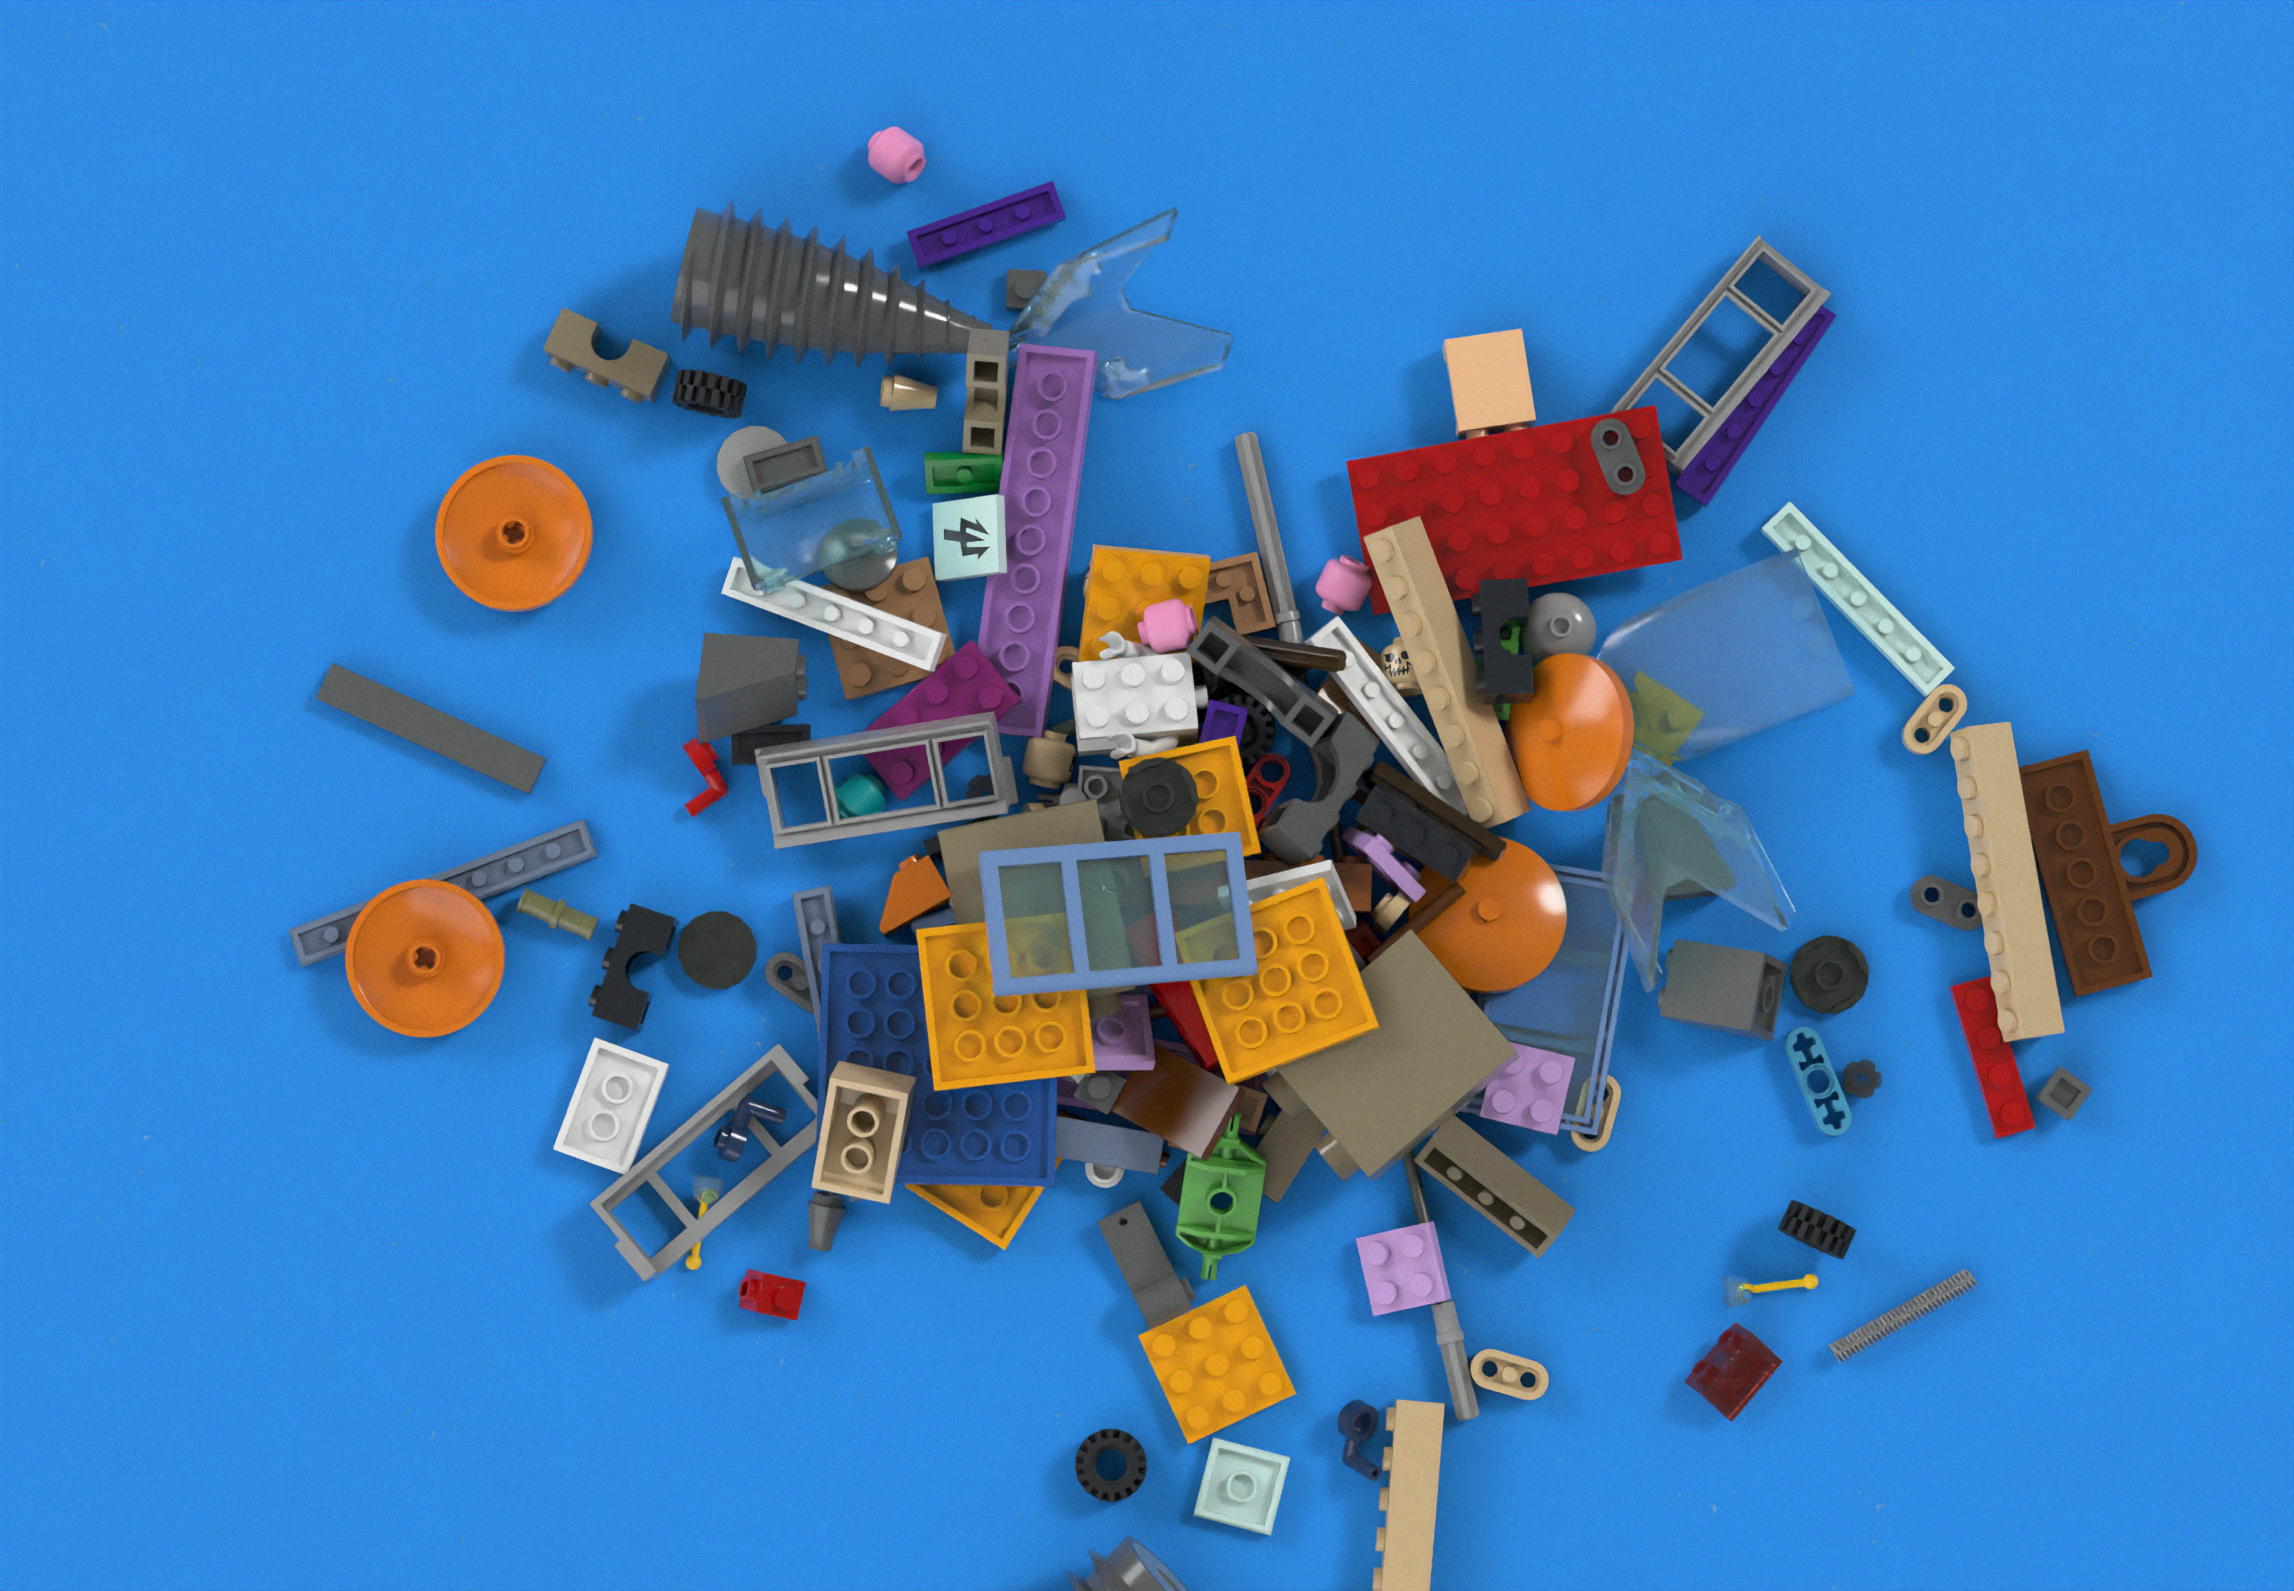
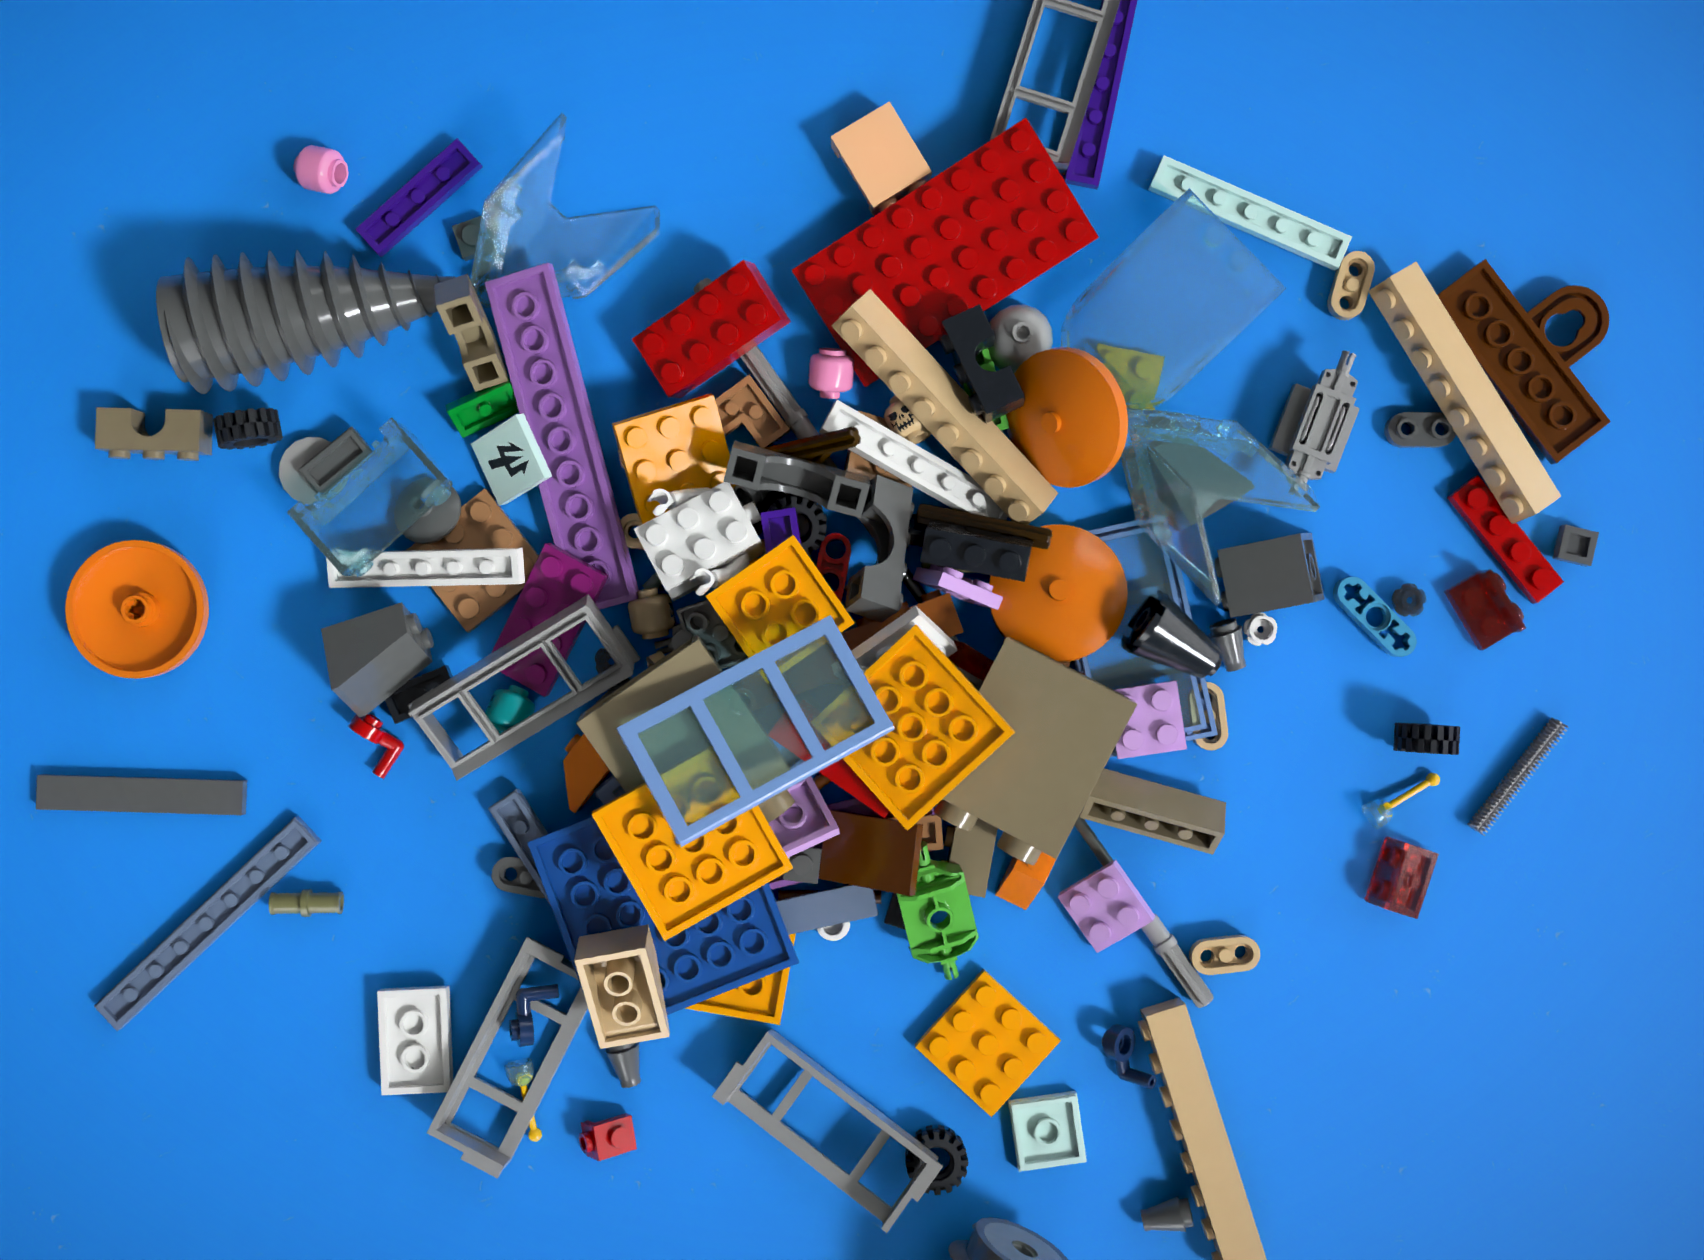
camera: 25 degrees left, 5 degrees up
(425, 958) = (210, 985): orange dish -> none
(640, 933) = (383, 950): black arch -> none
(717, 950) = (448, 877): pearl dark grey tile -> none
(906, 394) = (410, 363): tan cone -> none
(941, 1284) = (730, 1092): none -> light grey piece
(1145, 1265) = (899, 989): dark grey door -> none
(1158, 797) = (750, 612): pearl dark grey tile -> none
(1168, 626) = (701, 465): bright pink head -> none
(1236, 489) = (711, 329): none -> red brick
(1331, 1201) = (1024, 881): none -> orange slope
(1389, 911) = (978, 624): tan plate -> none
(1423, 918) = (1005, 626): reddish brown bar -> none
(1587, 1010) = (1171, 638): none -> black cone
(1617, 456) = (1011, 173): dark grey plate -> none
(1649, 1043) = (1229, 639): none -> dark grey cone
(1700, 1044) = (1269, 629): none -> white plate
(1829, 974) = (1348, 526): pearl dark grey tile -> none
(1837, 850) = (1318, 422): none -> light grey piece
(1939, 1121) = (1485, 608): none -> clear red bracket

